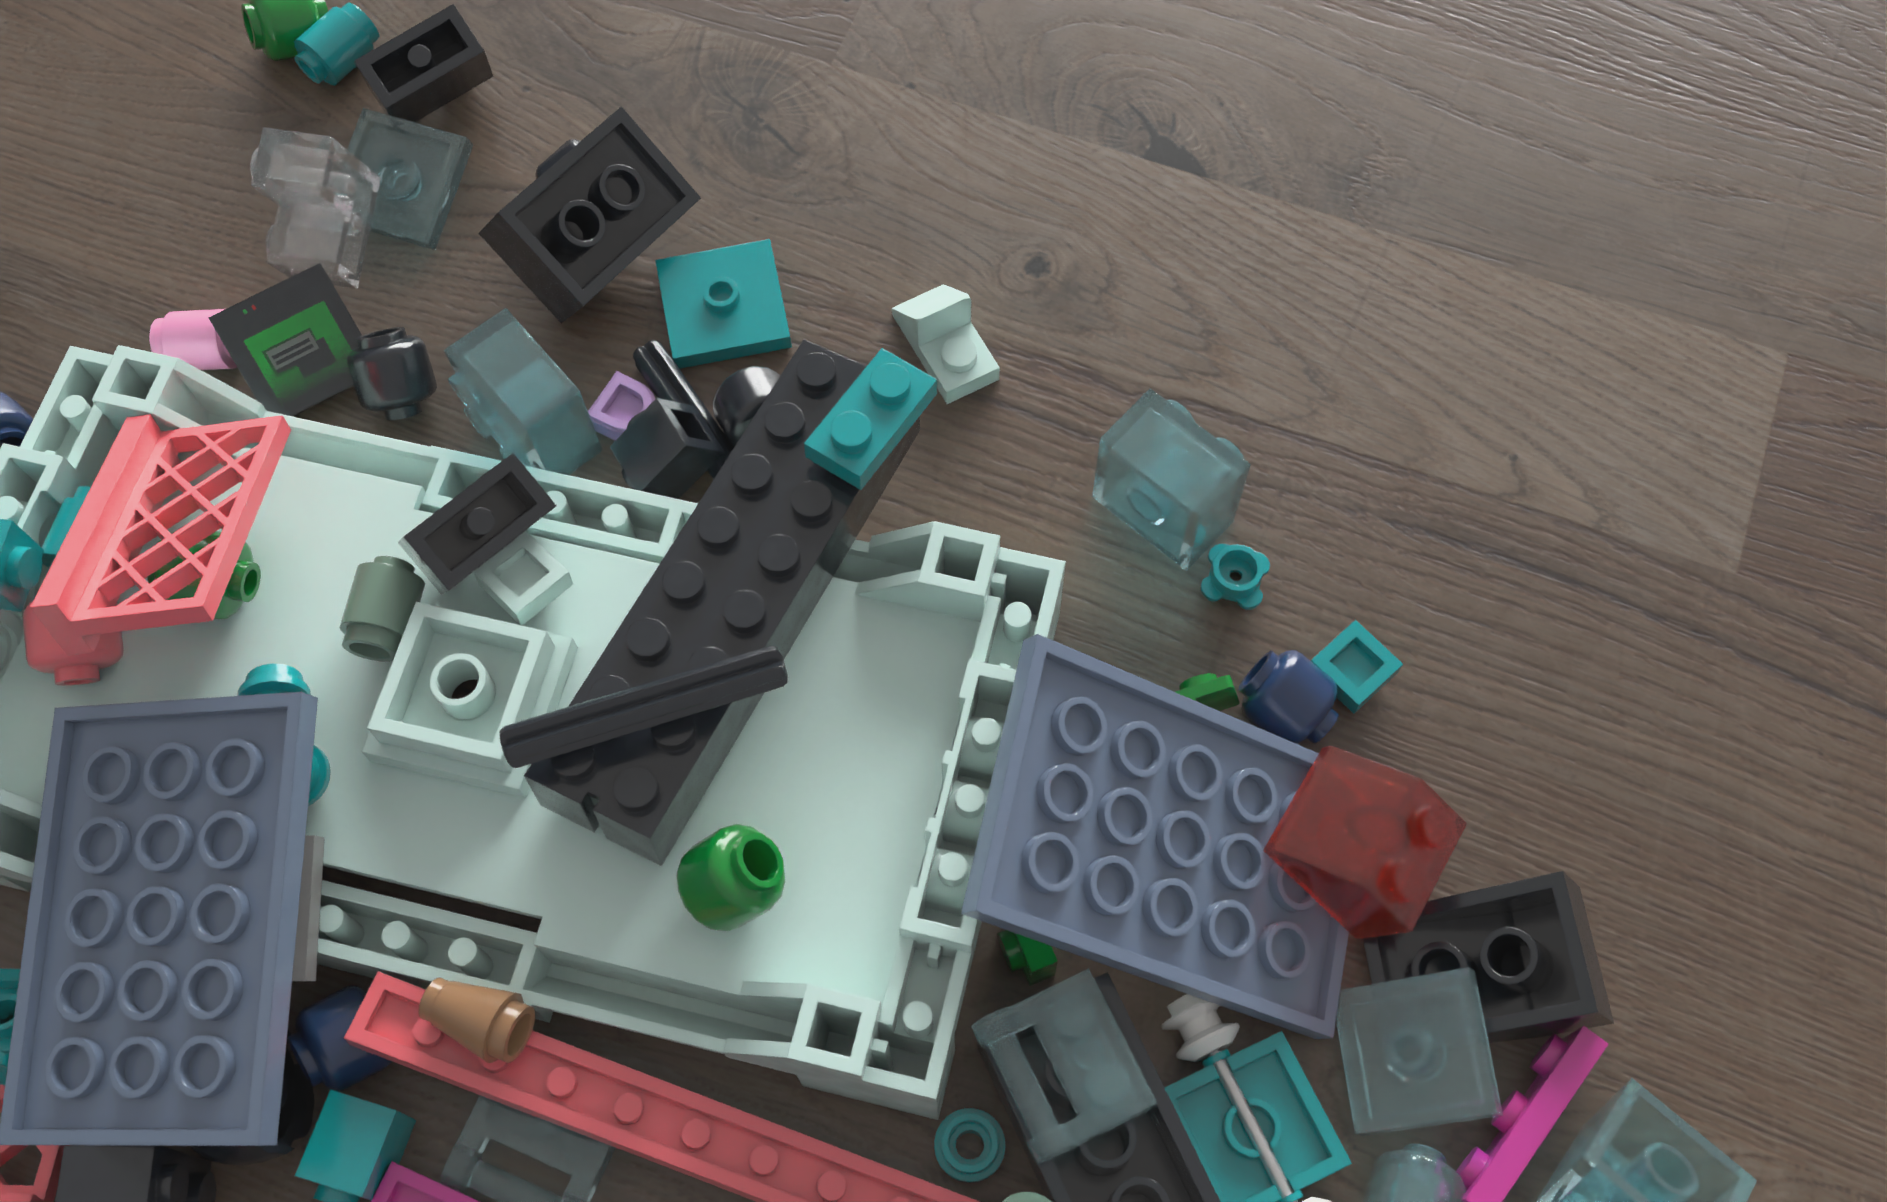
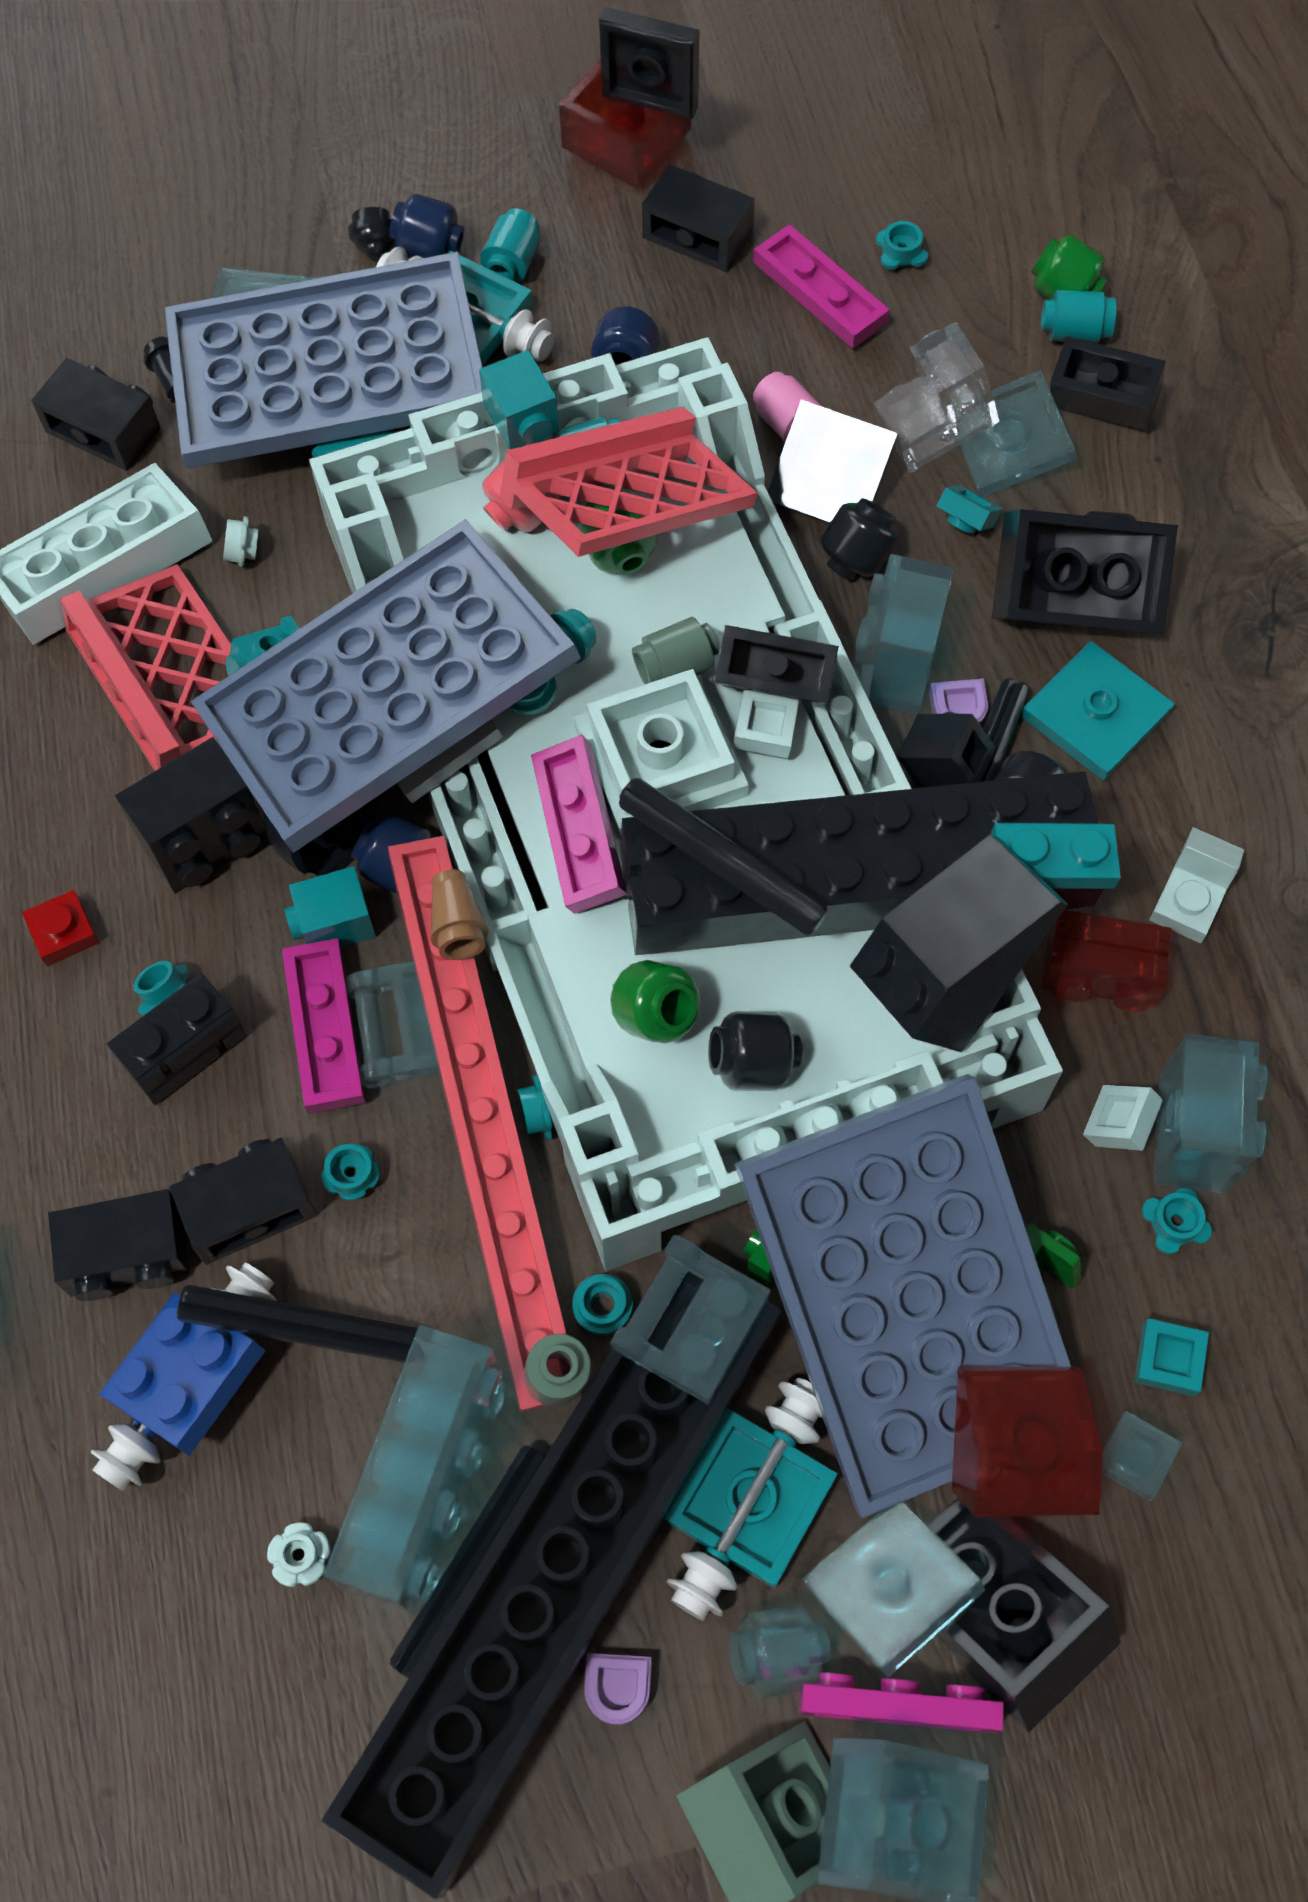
camera: 55 degrees right, 0 degrees up
(97, 224) = (821, 286): none -> dark pink plate
(123, 130) = (901, 245): none -> teal plate
(442, 265) = (968, 510): none -> teal plate
(482, 826) = (578, 824): none -> dark pink plate
(728, 1076) = (534, 1109): none -> teal plate
(848, 819) = (754, 1051): none -> black head
(895, 557) = (958, 944): none -> black slope
(964, 460) = (1107, 960): none -> clear red brick
(1116, 551) = (1123, 1117): none -> light aqua plate
(1289, 697) = (1103, 1321): dark blue head -> none
(1425, 751) = (1138, 1455): none -> clear light blue plate

